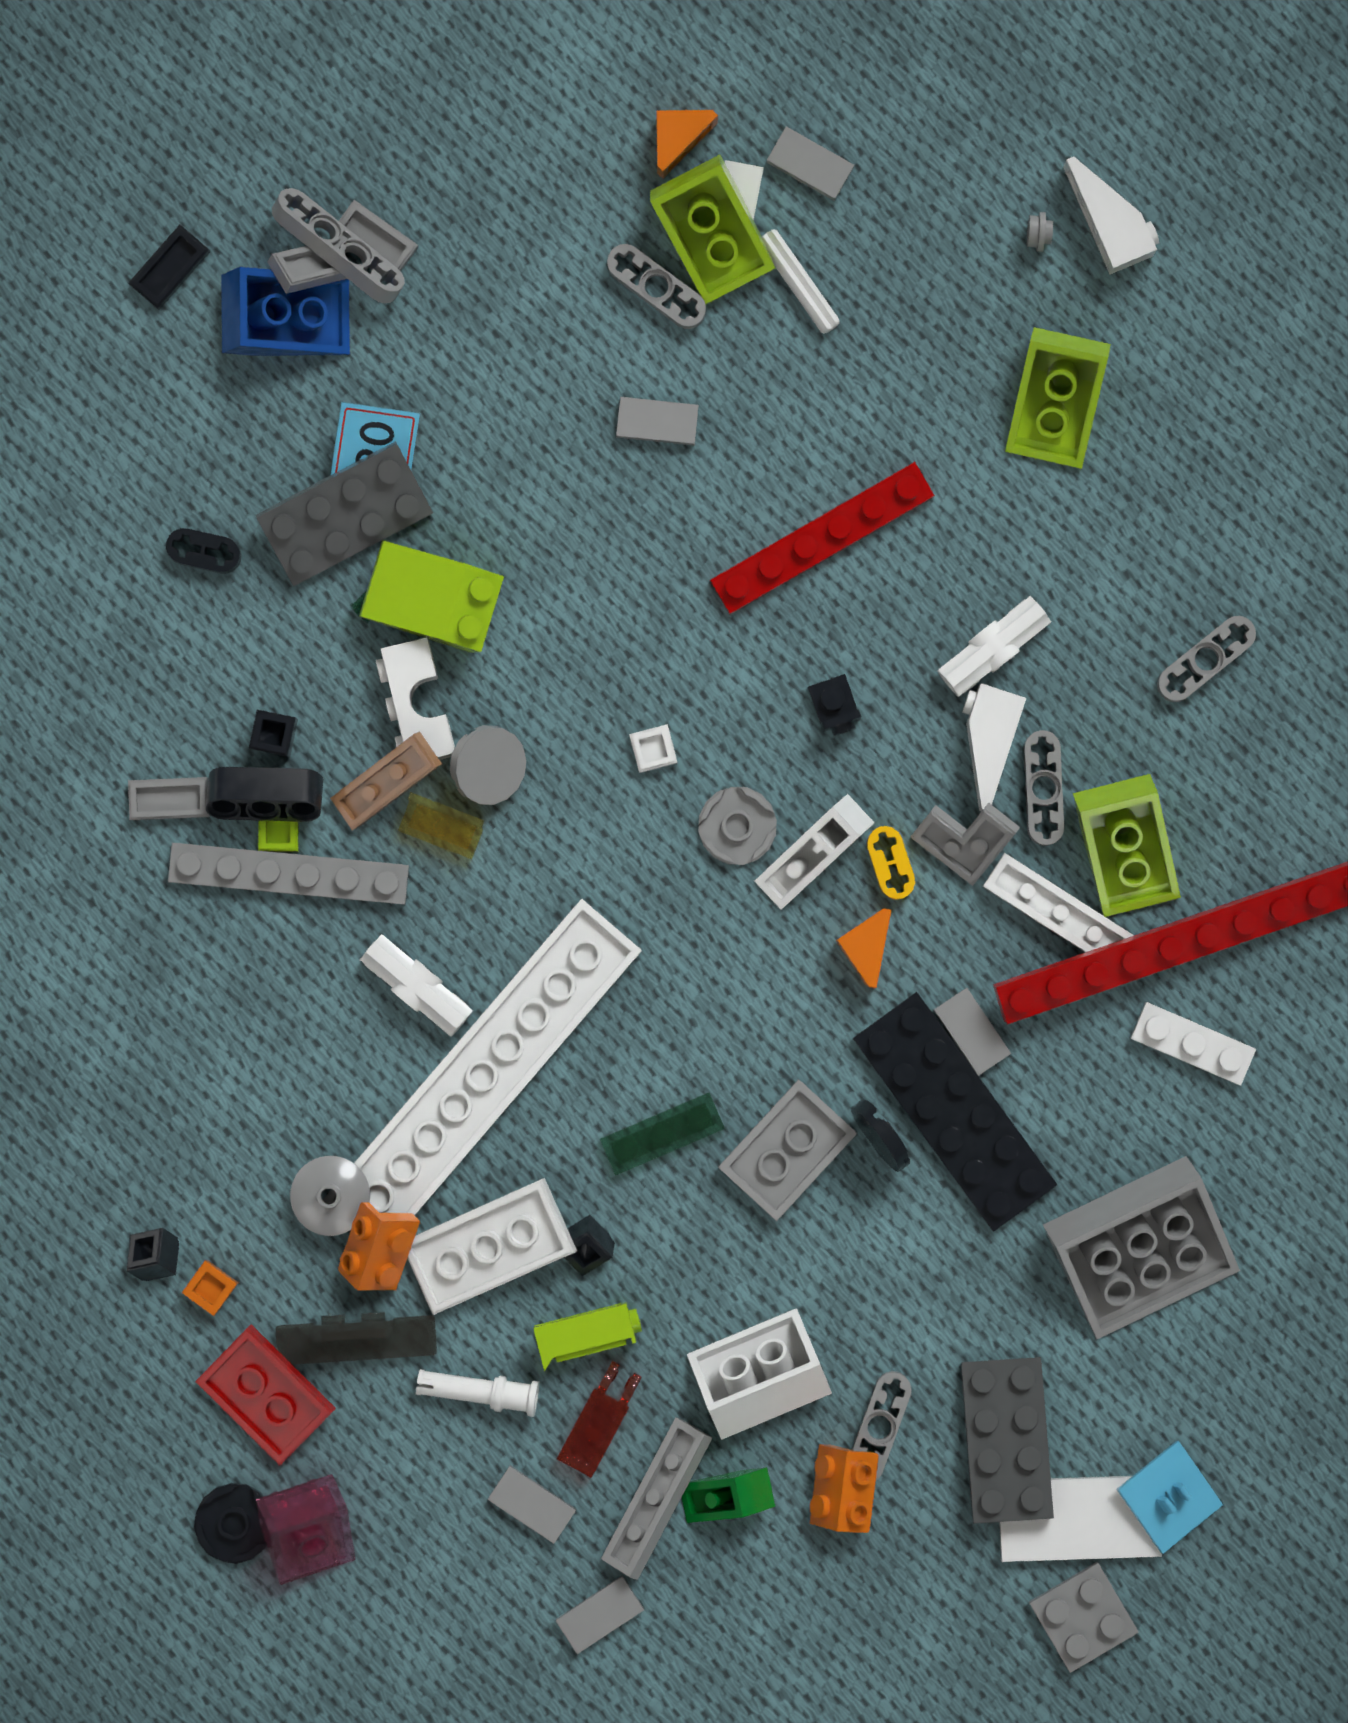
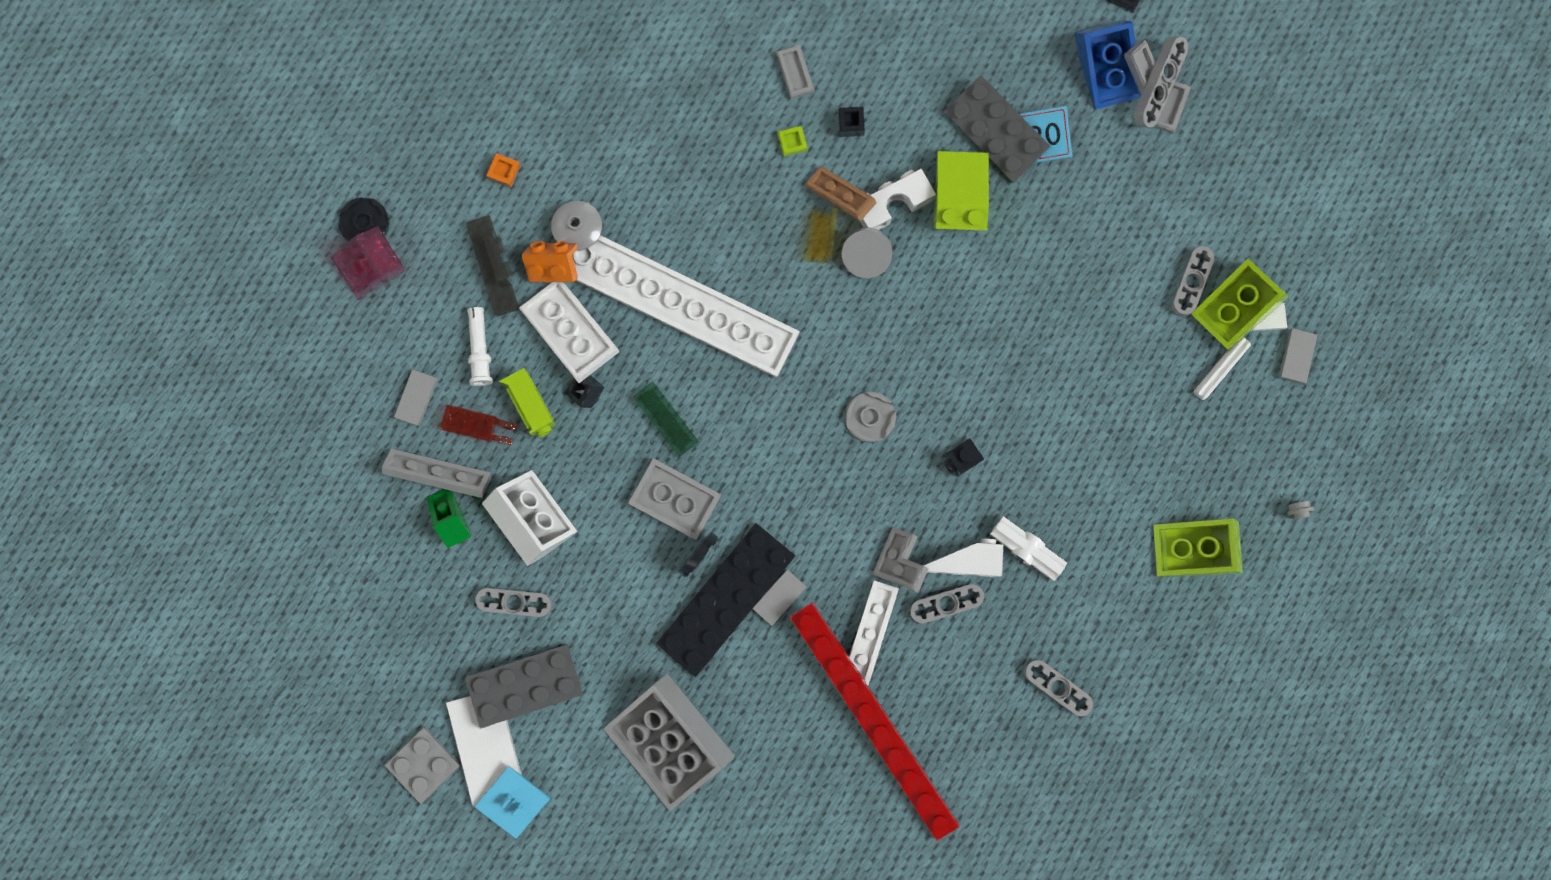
camera: 75 degrees right, 5 degrees down
(153, 1254) = (515, 132): black slope -> none
(205, 541) = (957, 53): black beam -> none
(264, 794) = (813, 124): black beam -> none
(265, 1394) = (445, 219): red tile -> none
(288, 873) = (768, 154): light grey plate -> none
(416, 985) = (719, 245): white piece -> none
(599, 1614) = (356, 457): light grey tile -> none
(653, 748) = (904, 353): white tile -> none
(657, 421) = (1109, 303): light grey tile -> none
(679, 133) = (1292, 270): orange slope -> none
(814, 851) = (868, 468): white slope -> none
(822, 538) = (1065, 424): red plate -> none
(843, 1489) = (468, 589): orange bracket -> none
(866, 946) = (816, 515): orange slope -> none
(900, 860) = (869, 513): yellow beam -> none
(1114, 222) = (1322, 555): white slope -> none
(1127, 845) = (924, 666): lime slope -> none
(1193, 1043) = (808, 742): white plate -> none

